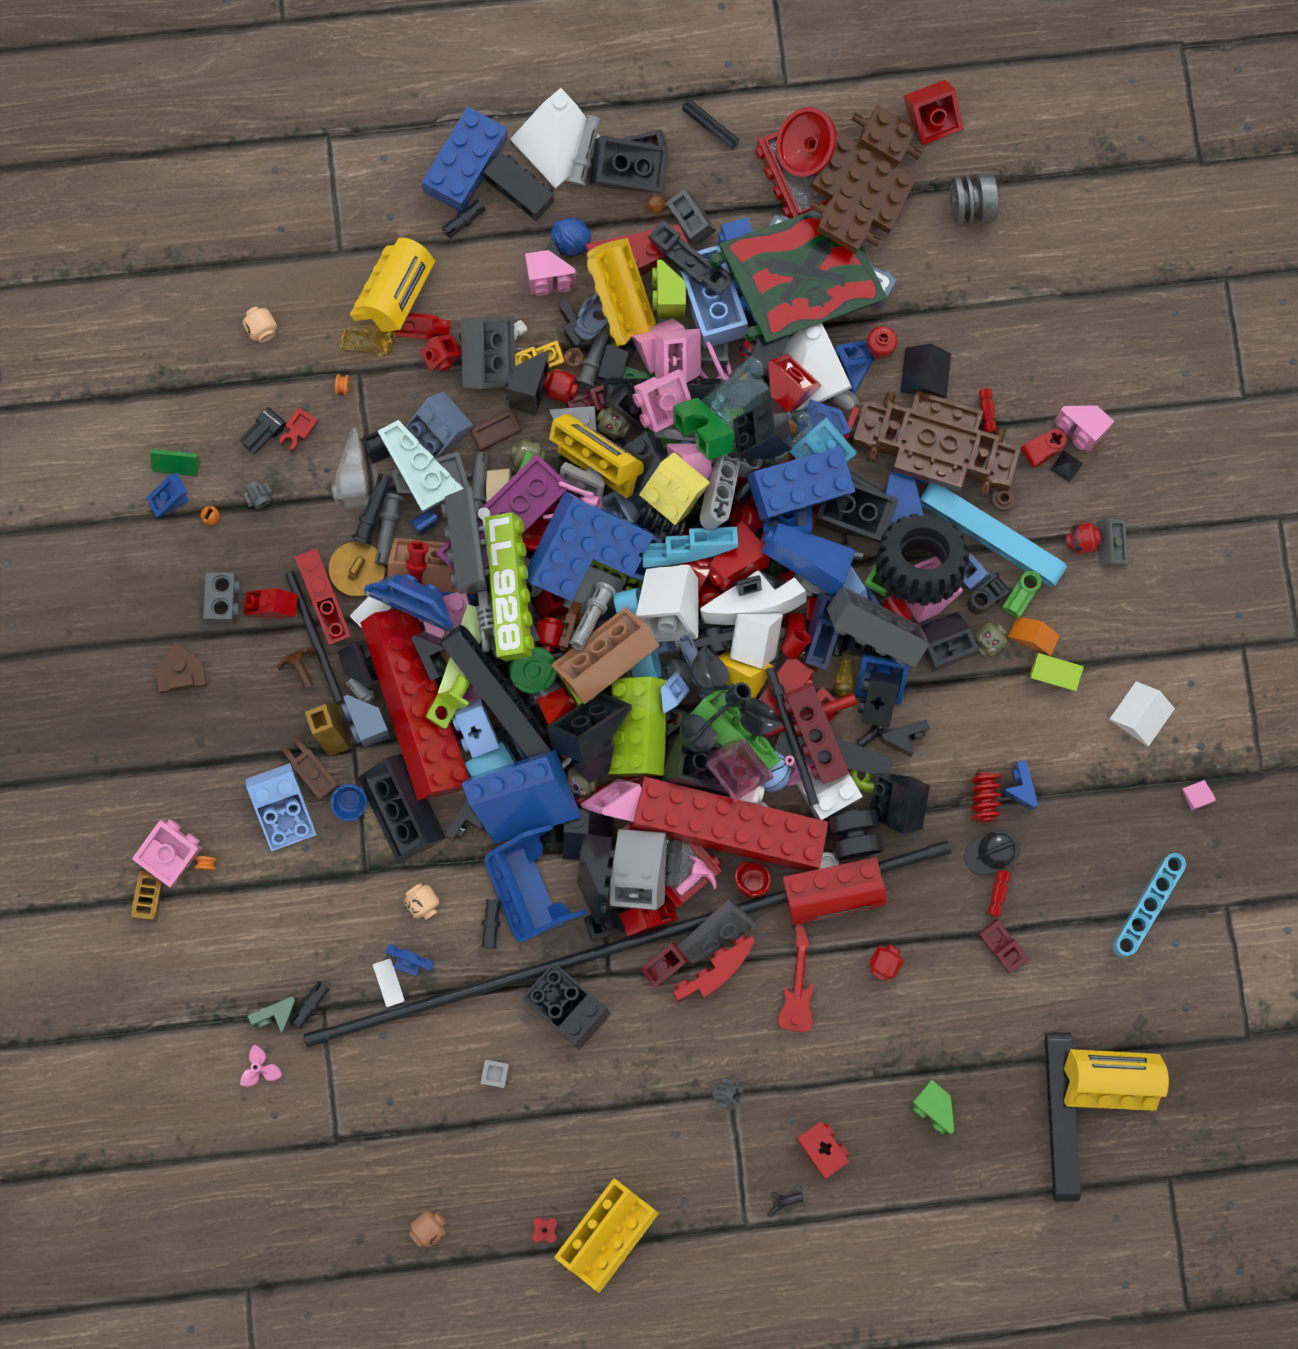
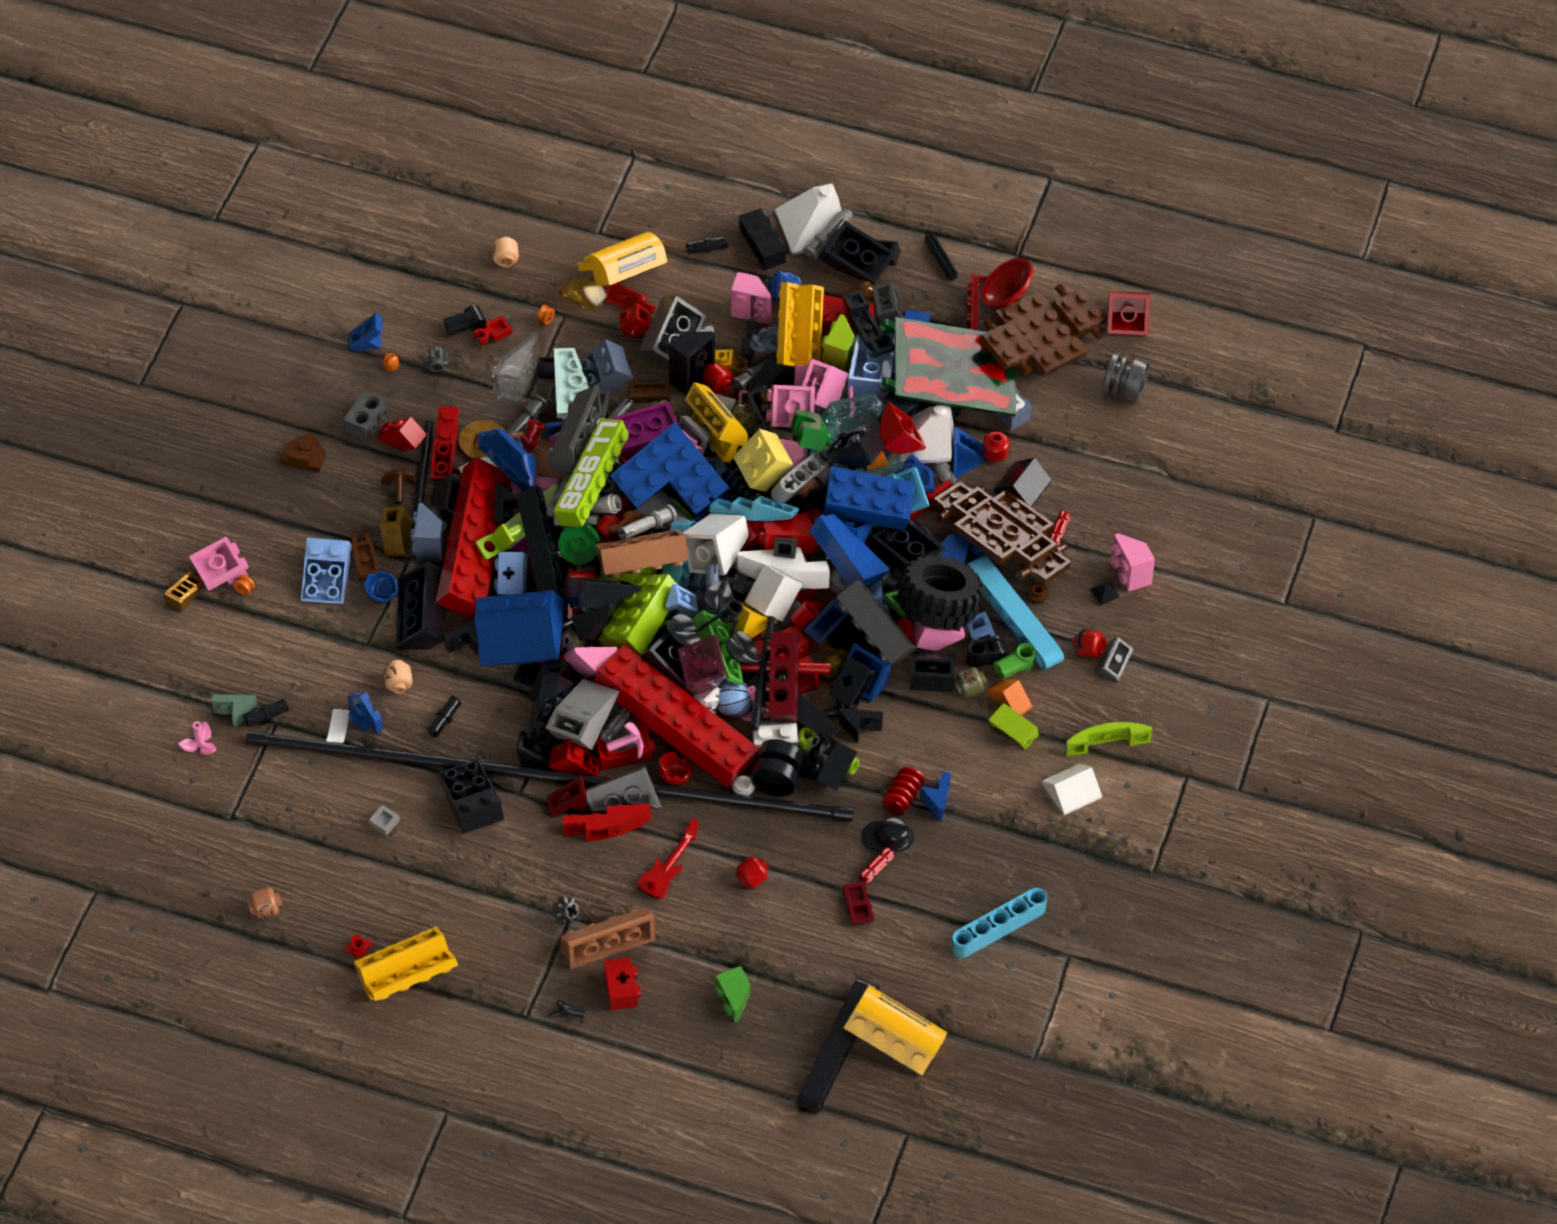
camera: 30 degrees right, 25 degrees down
(174, 462) = (392, 318): green slope -> none
(369, 520) = (512, 407): black pin -> none
(463, 159) = (719, 209): blue brick -> none
(522, 888) = (484, 696): blue windscreen -> none
(539, 604) = (607, 504): none -> white cone
(784, 1104) = (608, 937): none -> nougat slope
(834, 891) = (736, 804): red brick -> none
(1041, 449) = (1090, 570): red piece -> none
(1173, 625) = (1108, 732): none -> lime slope
(1198, 795) = (1087, 865): bright pink slope -> none

